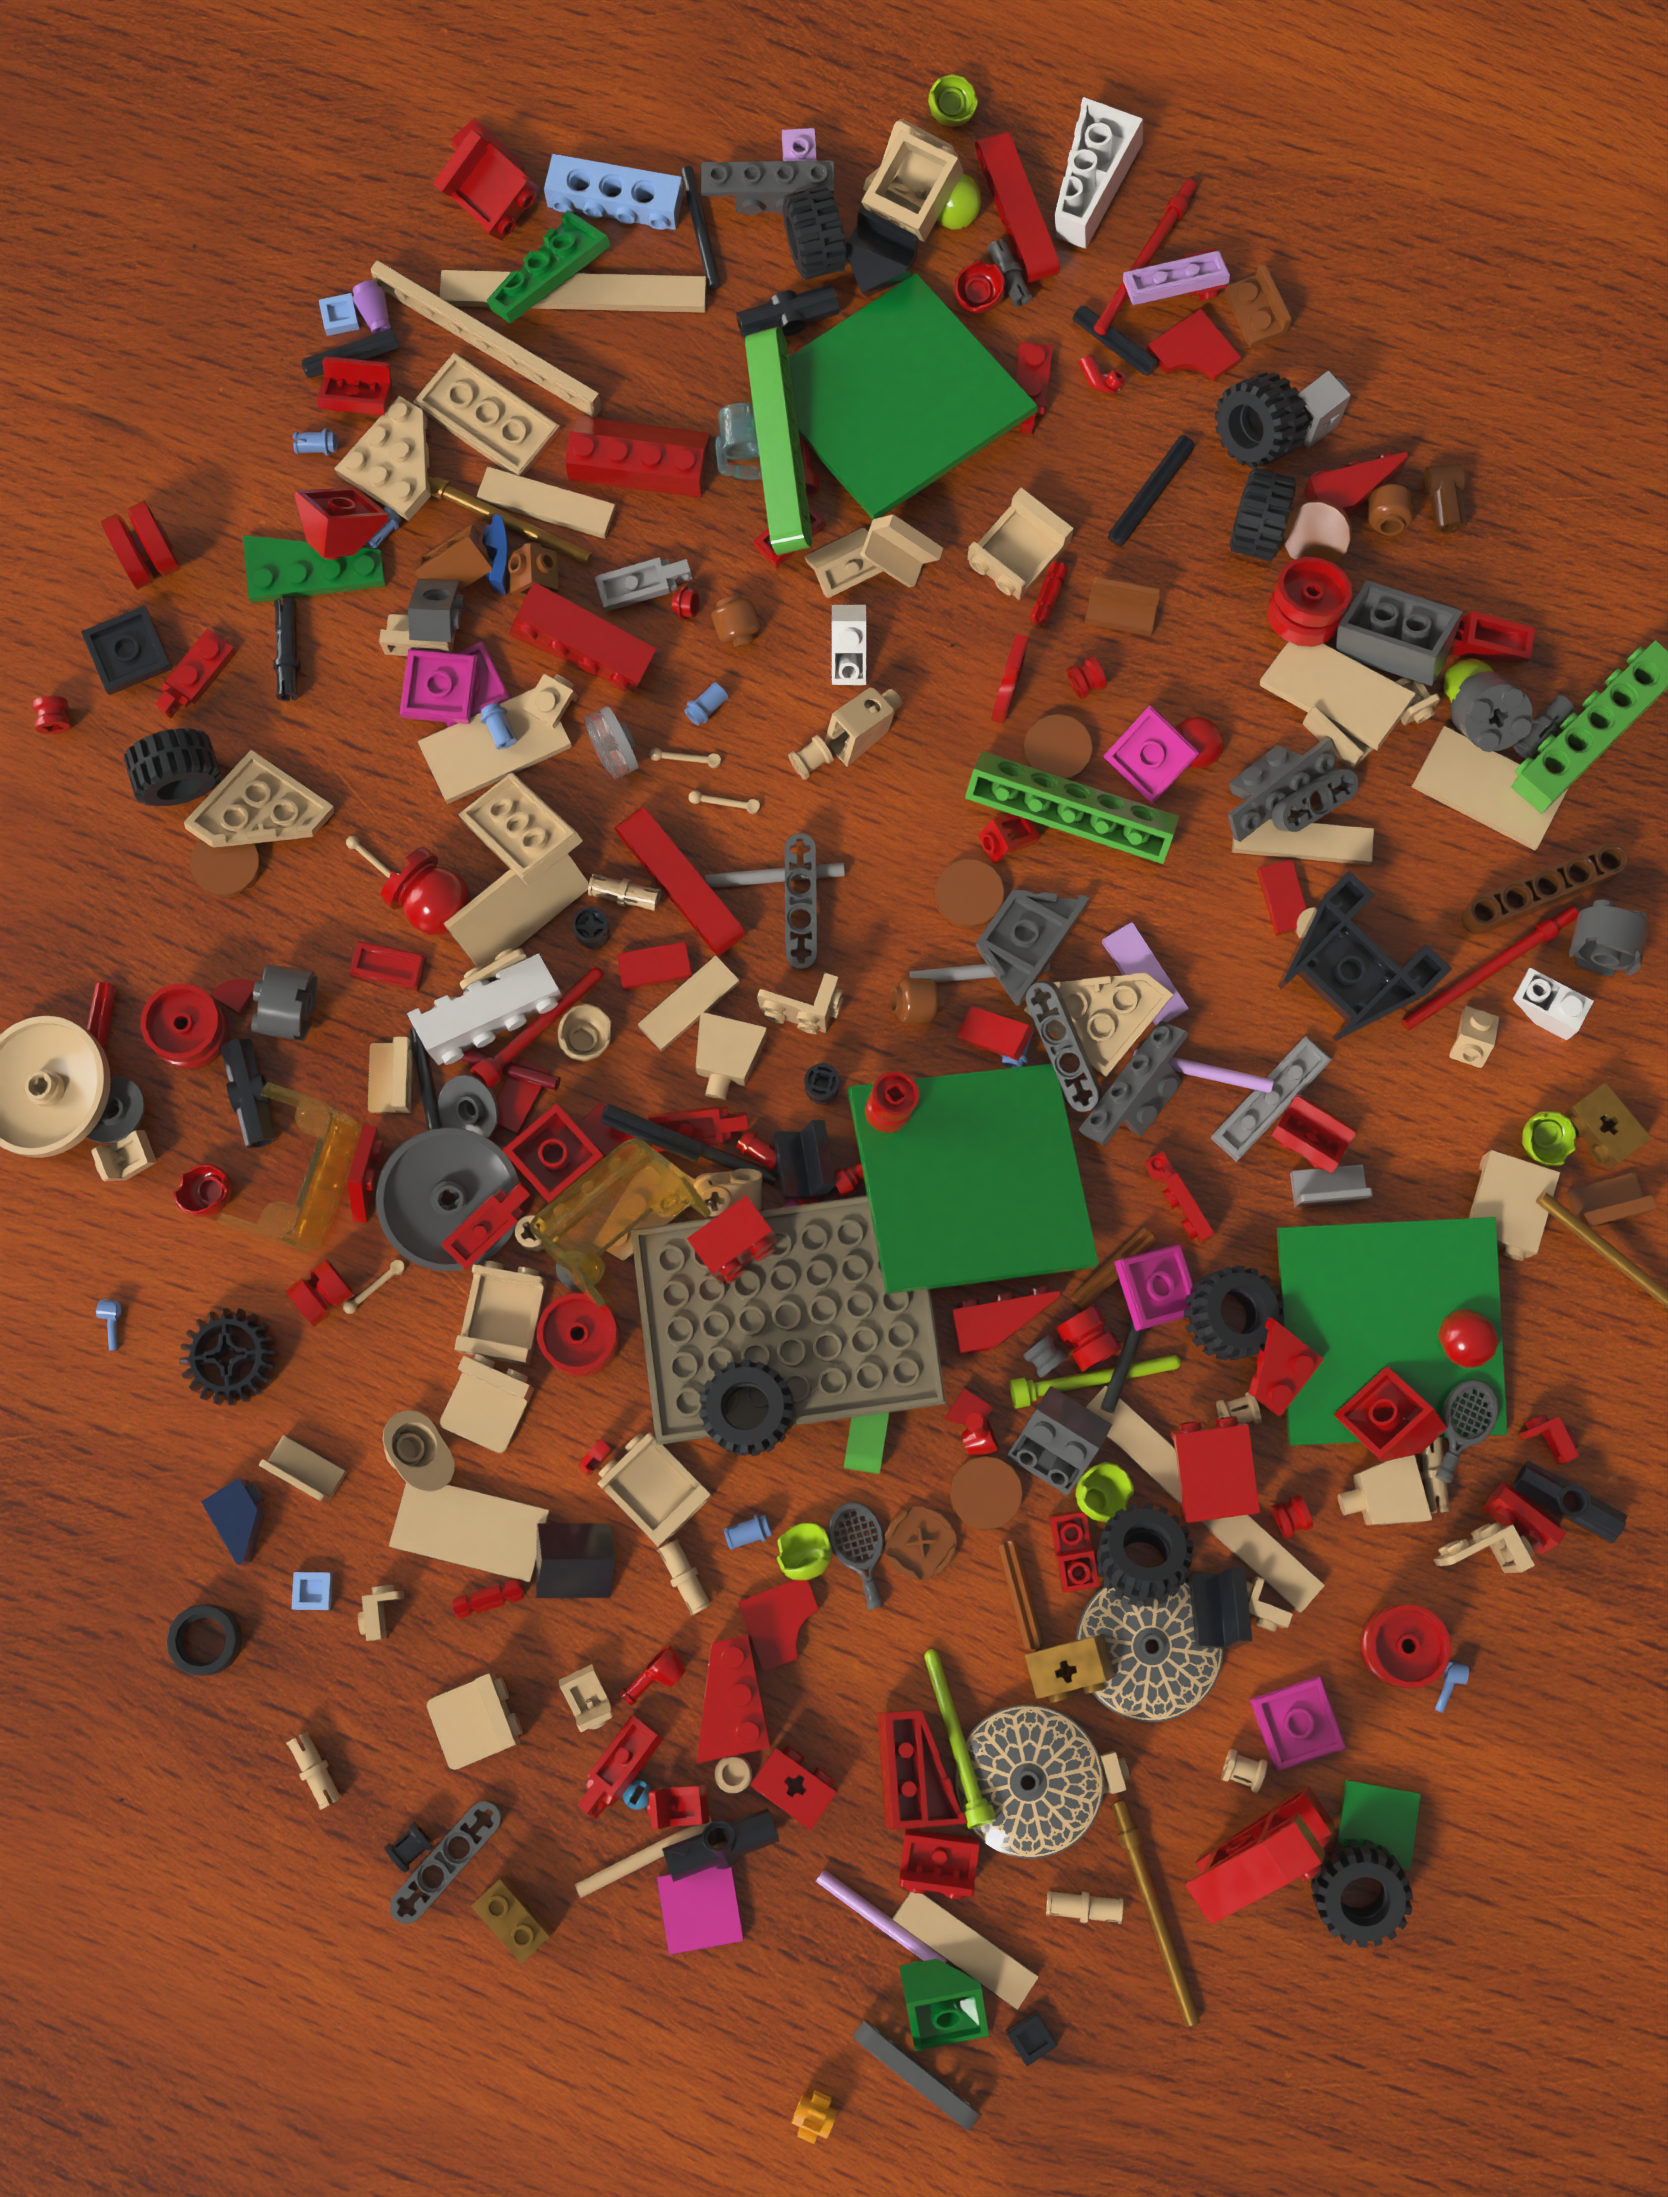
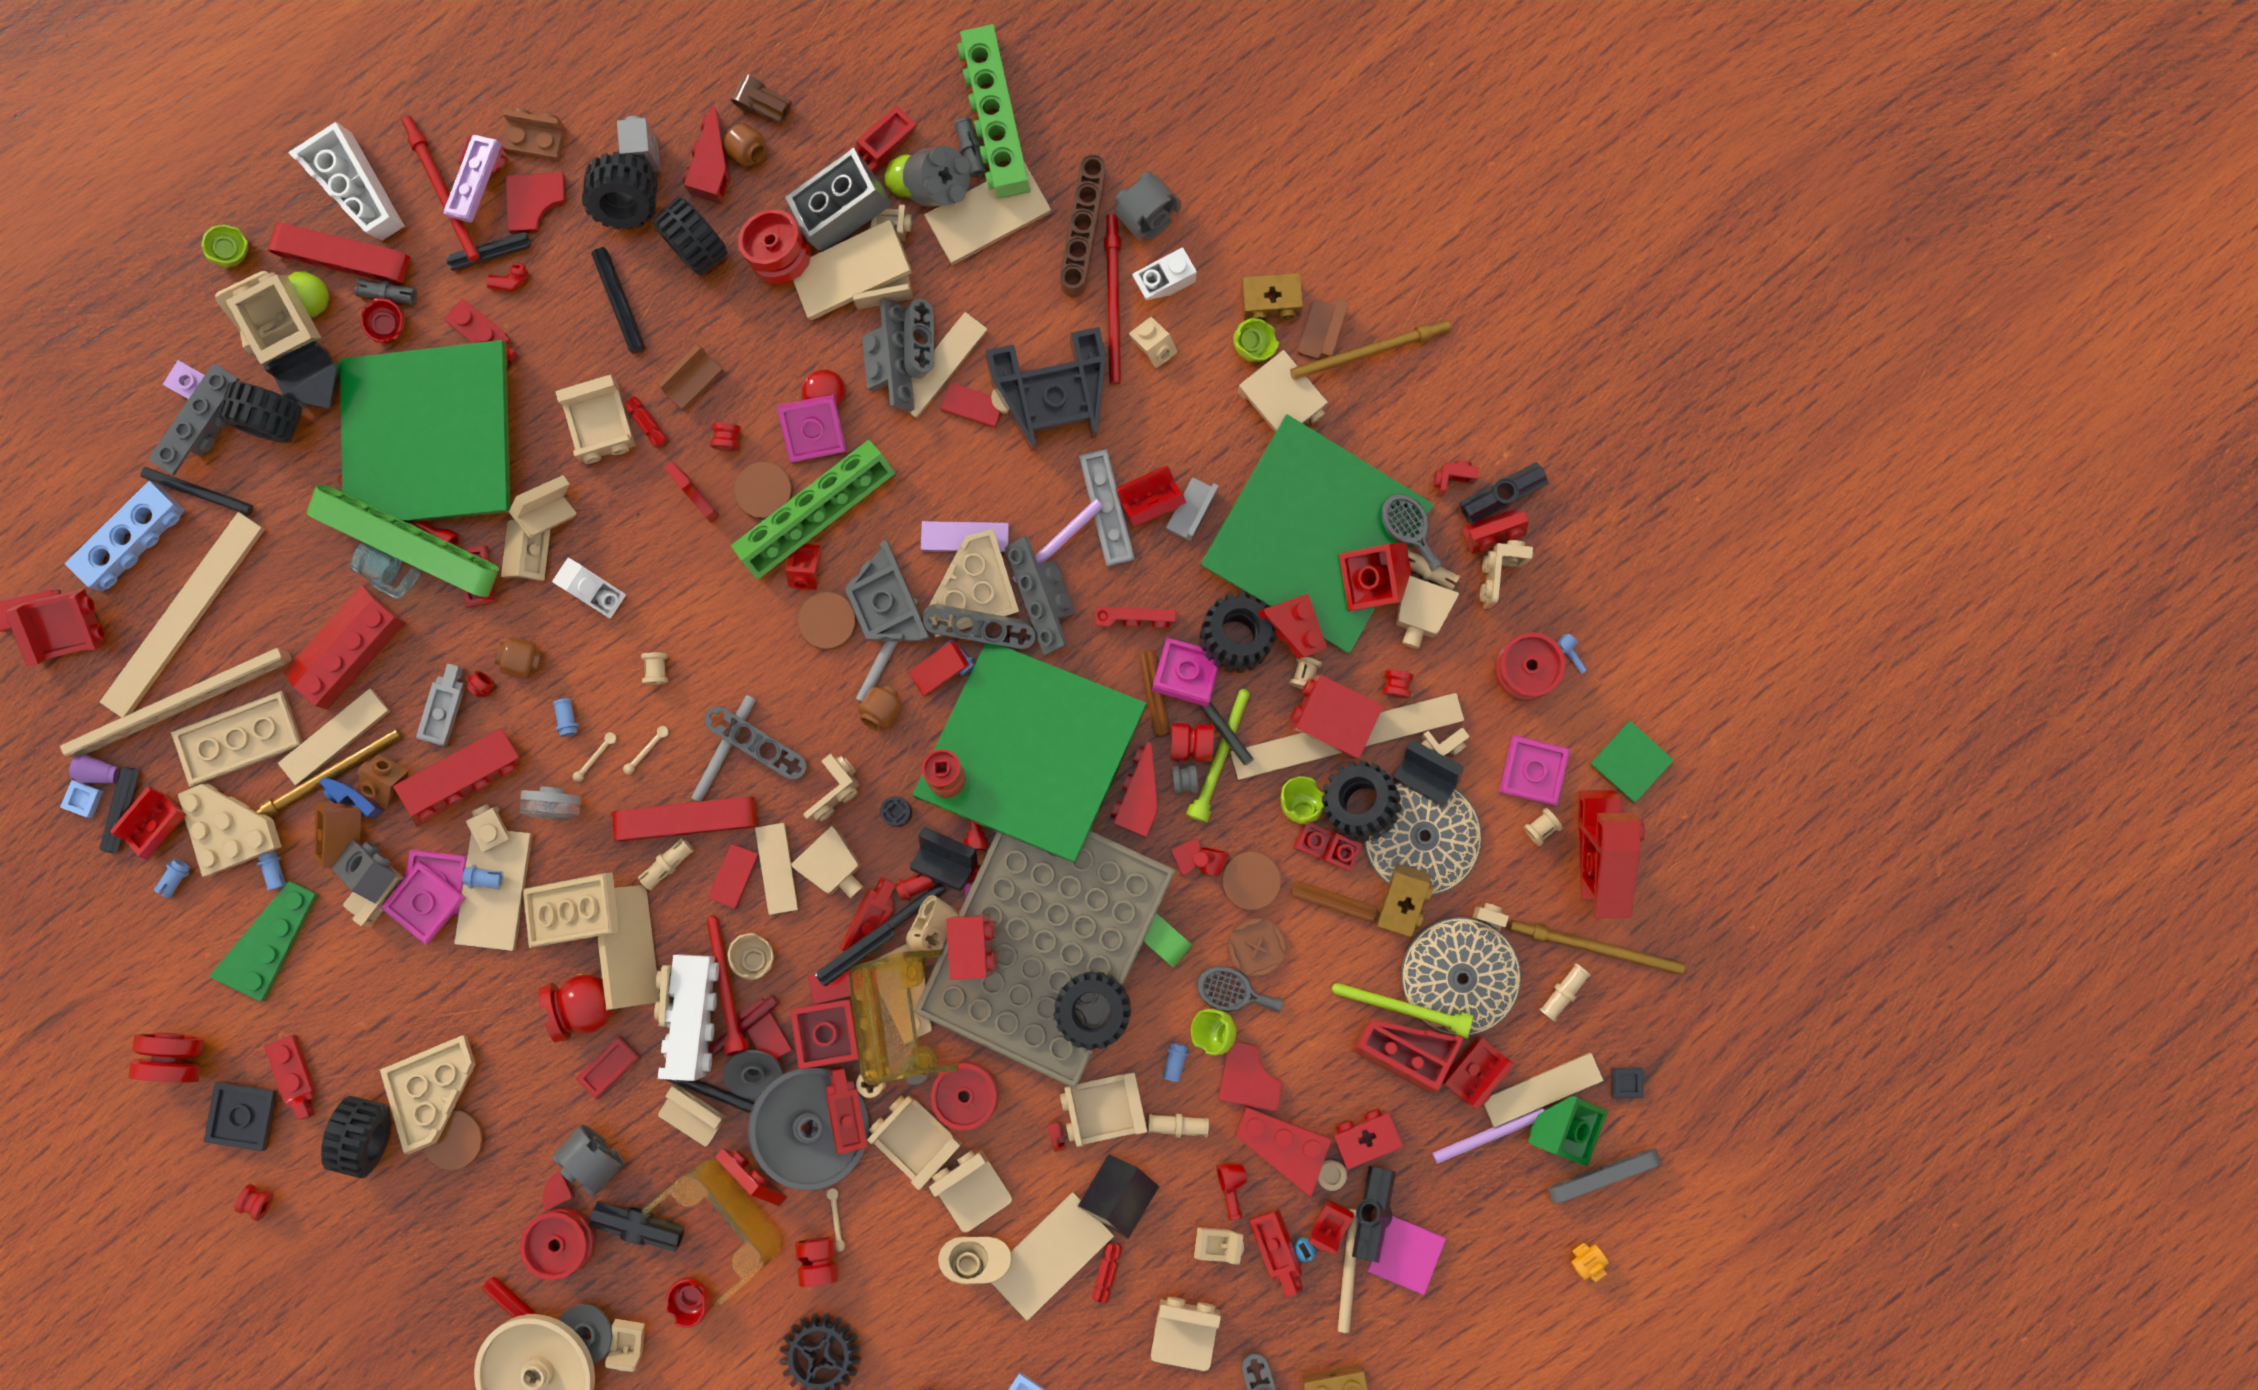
camera: 55 degrees left, 5 degrees up
(286, 659) = (329, 1003): black pin -> none
(304, 1469) = (935, 1349): tan panel -> none
(338, 520) = (245, 898): red slope -> none
(353, 843) = (500, 1036): tan hinge -> none
(372, 1618) = (1070, 1363): tan bracket -> none
(557, 260) = (151, 612): green wing -> none
(590, 920) = (672, 904): black wheel -> none
(789, 311) = (307, 469): black piece -> none
(861, 723) = (654, 616): tan torso -> none
(1059, 1440) = (1248, 807): dark grey slope -> none
(1318, 531) = (728, 206): tile -> none
(1374, 1920) = (1691, 806): black tyre -> none
(1468, 1338) = (1355, 487): red hair -> none

